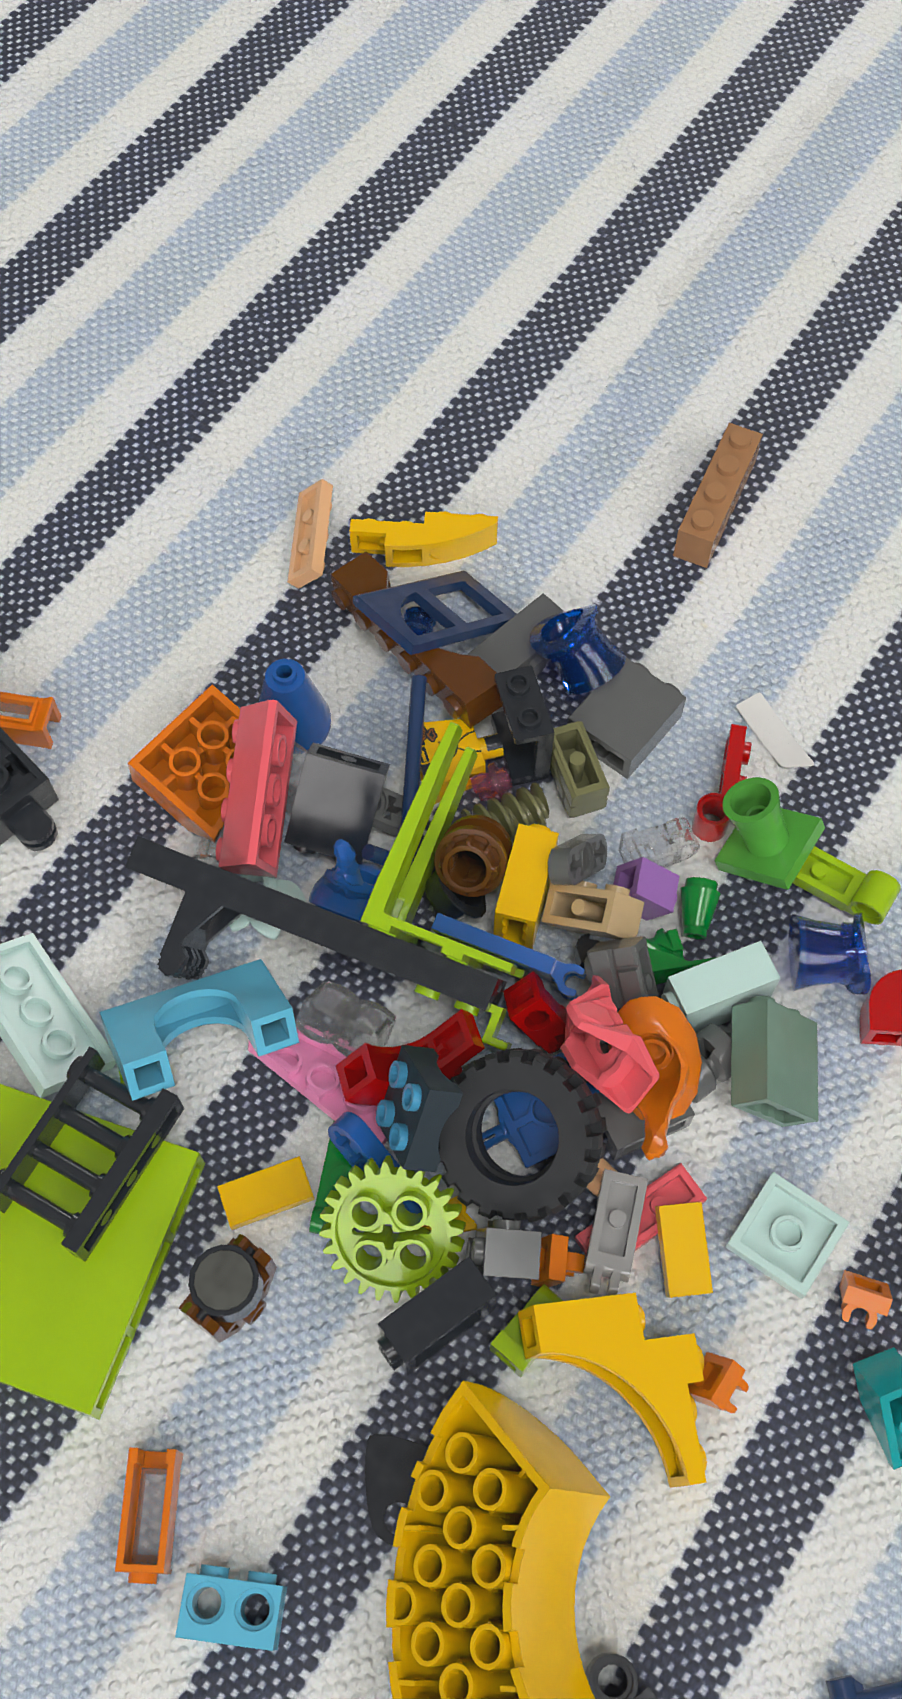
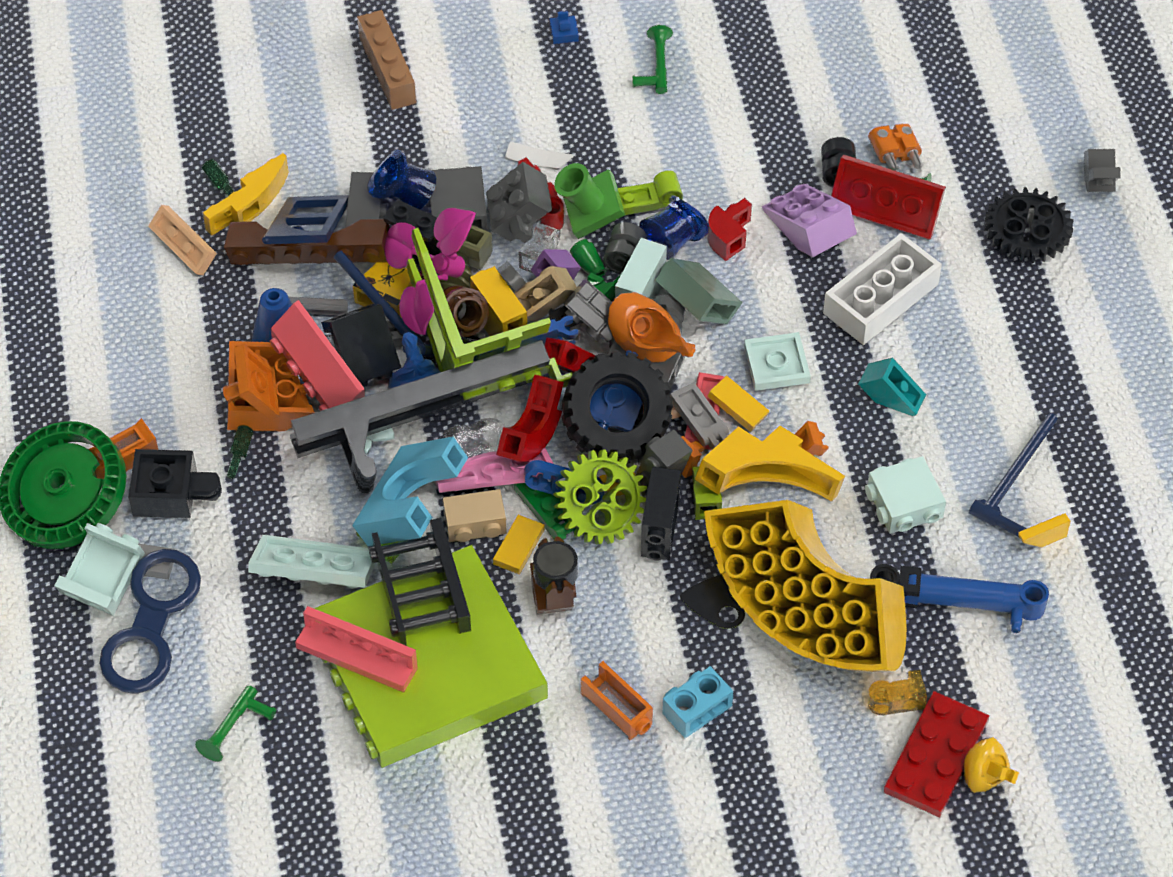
camera: 45 degrees left, 10 degrees down
(118, 812) = (239, 448): none -> clear green axle
(167, 757) = (254, 384): none -> orange tile
(250, 1115) = (474, 516): none -> tan brick
(354, 707) = (323, 306): none -> light grey axle
(417, 1108) = (562, 427): black brick -> none
(420, 492) = (217, 176): none -> clear green axle
(521, 756) = (451, 231): none -> dark pink plant
(623, 1072) = (640, 330): coral piece -> none
(677, 776) = (518, 202): none -> dark grey hinge
(755, 922) = (622, 245): none -> dark grey wheel
(760, 1582) = (905, 495): none -> light aqua brick
(864, 1293) = (836, 356): orange tile -> none

